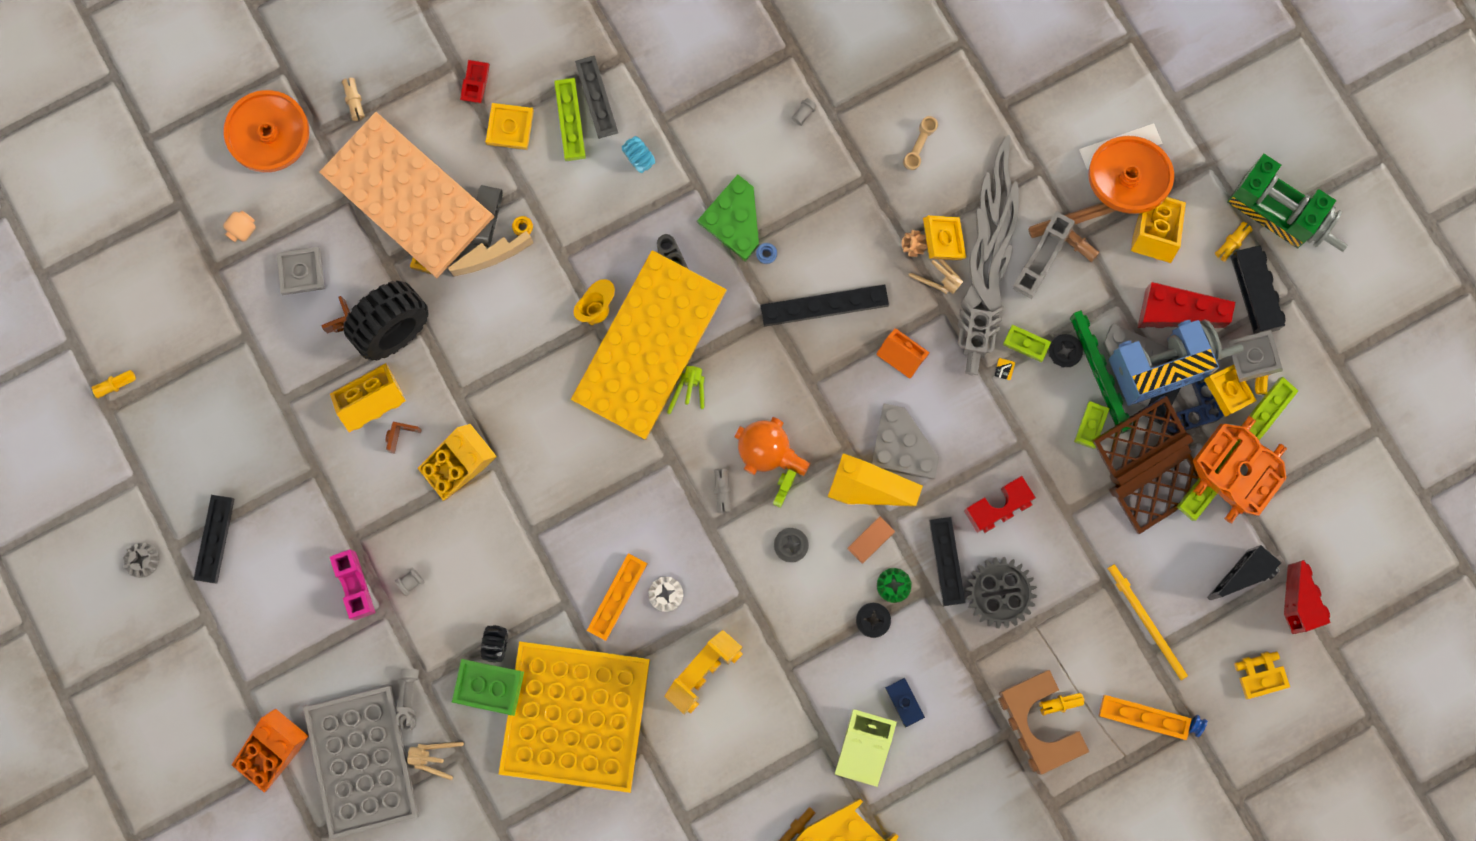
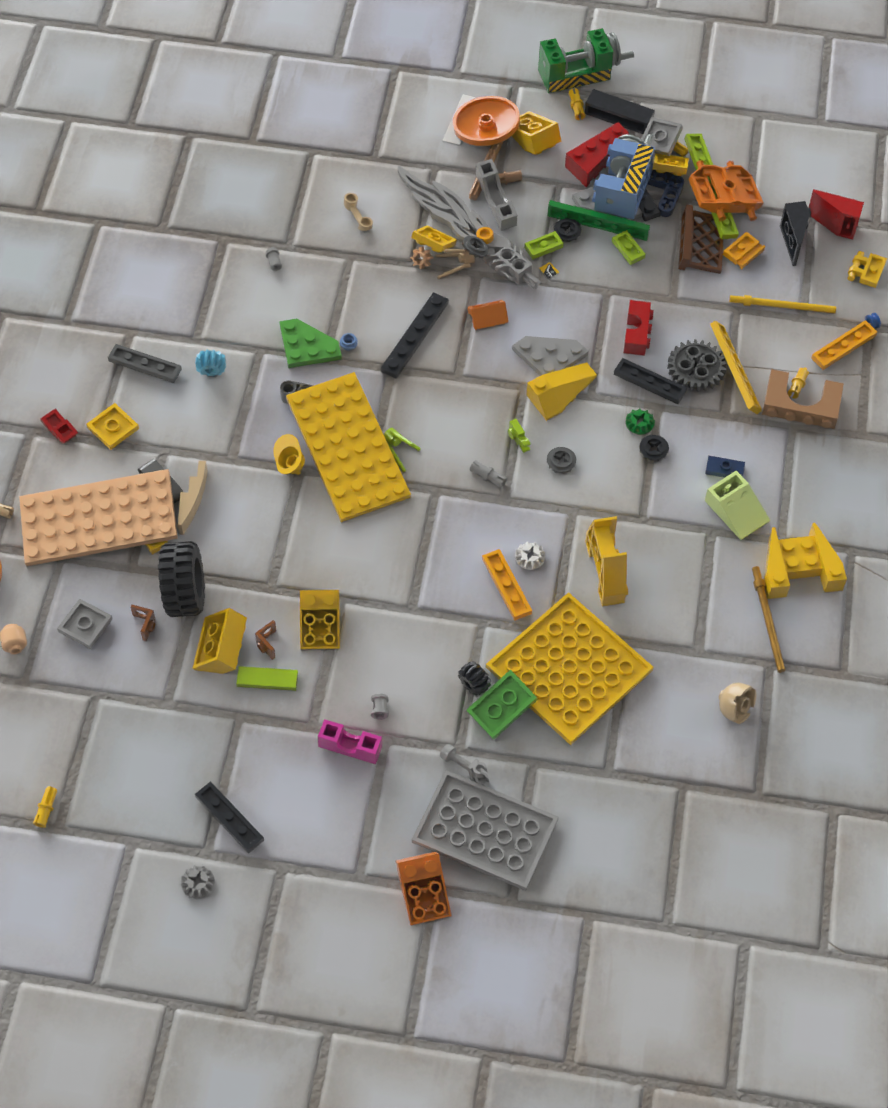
camera: 55 degrees left, 20 degrees down
(366, 464) = (267, 678): none -> lime tile
(419, 756) = (514, 786): tan plant -> none
(519, 221) = (189, 462): yellow plate -> none
(570, 119) = (144, 388): lime plate -> none
(766, 447) = (481, 427): orange piece -> none
(871, 540) = (598, 412): nougat slope -> none
(970, 285) = (475, 246): none -> dark grey gear
(987, 281) = (485, 234): none -> light orange tile
(1029, 631) = (736, 367): none -> yellow tile
(1147, 458) = (675, 229): reddish brown fence -> none
(1182, 538) = (744, 250): none -> light orange plate

